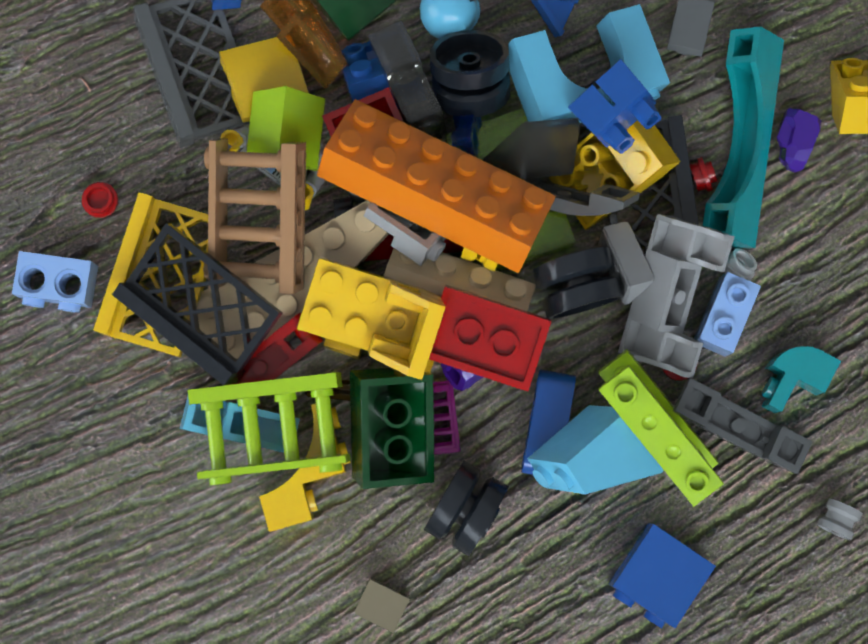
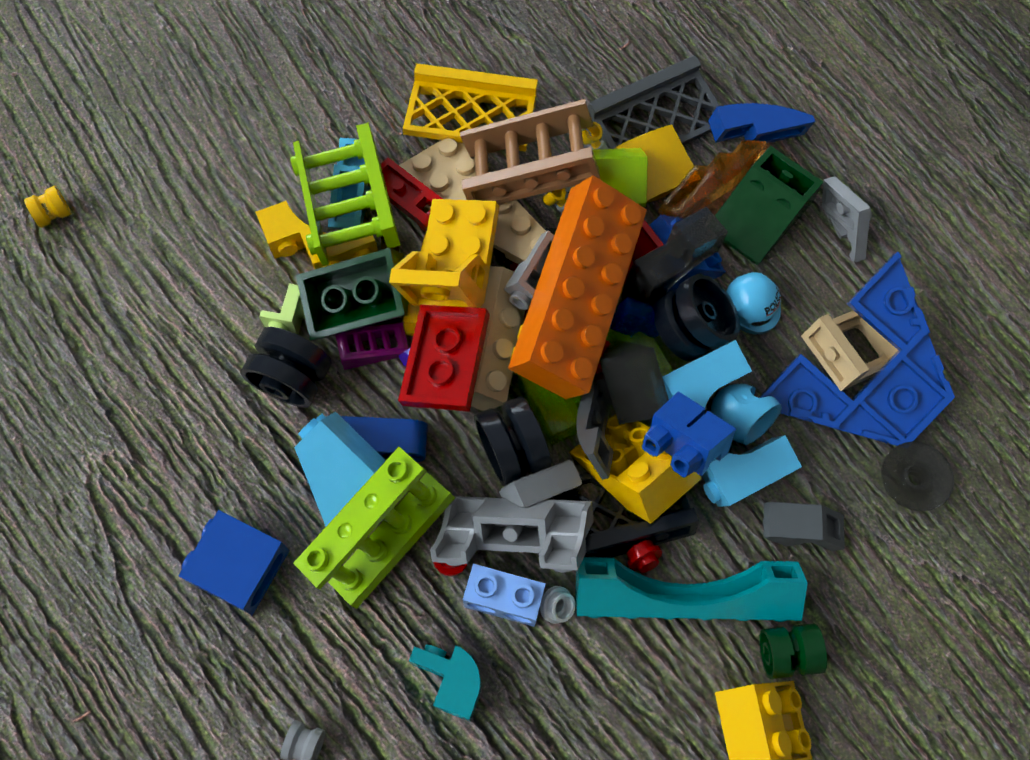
camera: 85 degrees right, 15 degrees down
(57, 273) = (455, 37): light blue brick -> none
(100, 200) = (529, 63): red plate -> none
(185, 333) = (425, 114): black fence -> none
(382, 605) = (197, 316): dark tan panel -> none
(389, 497) = (291, 313): none -> yellowish green bracket
(576, 51) = (743, 410): none -> medium azure helmet
(741, 427) = (391, 626): dark grey slope -> none
(797, 138) = (700, 648): dark purple rock -> none
(810, 54) = (795, 650): none -> dark green wheel

